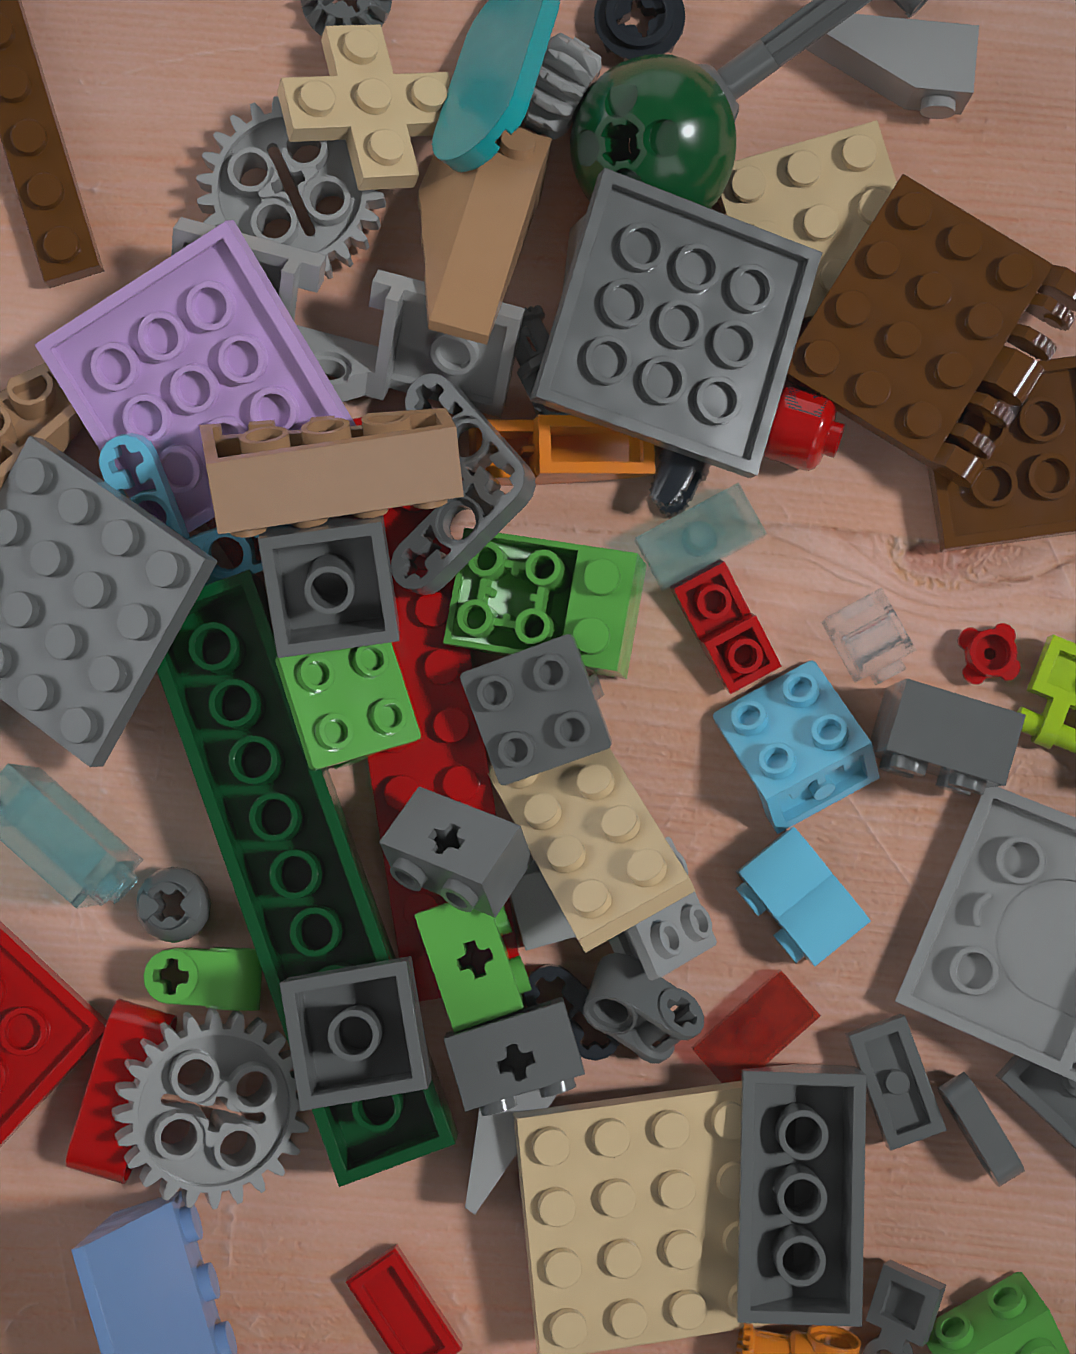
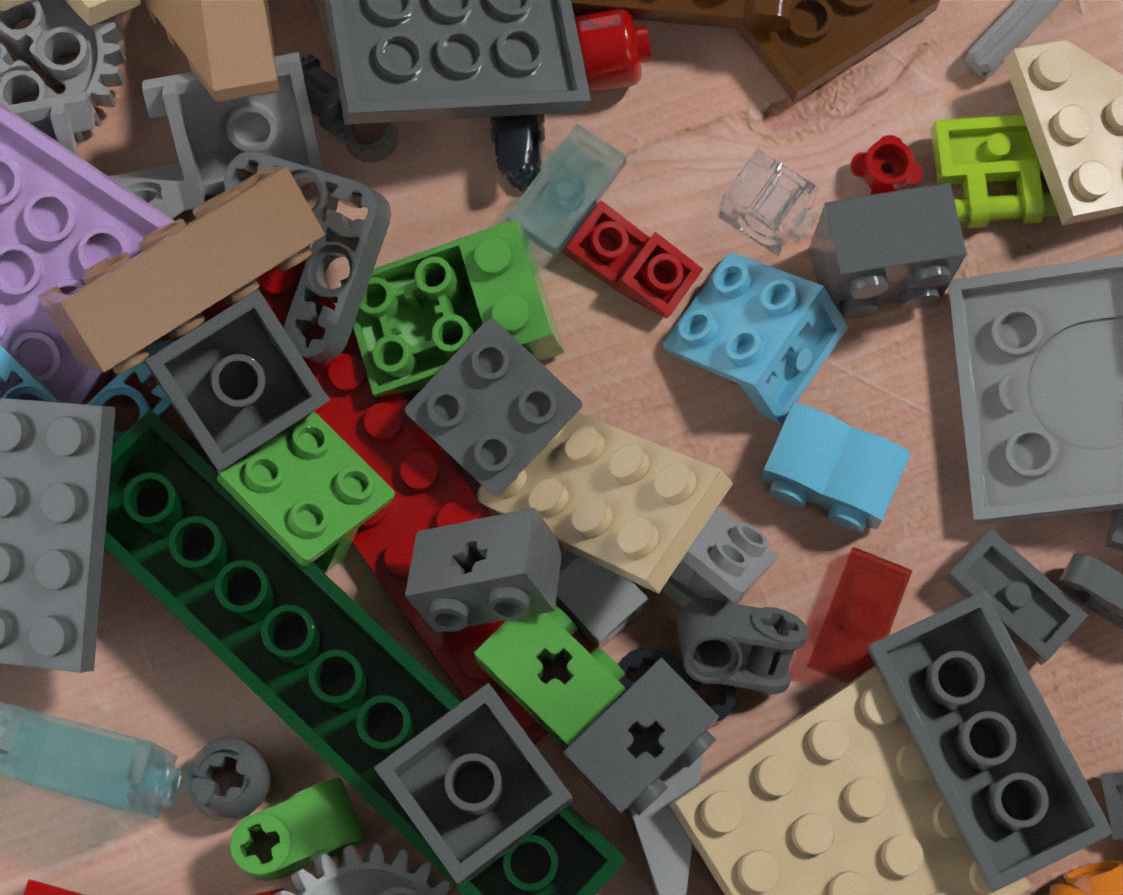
camera: 30 degrees left, 10 degrees down
(569, 450) = (412, 163): orange slope -> none

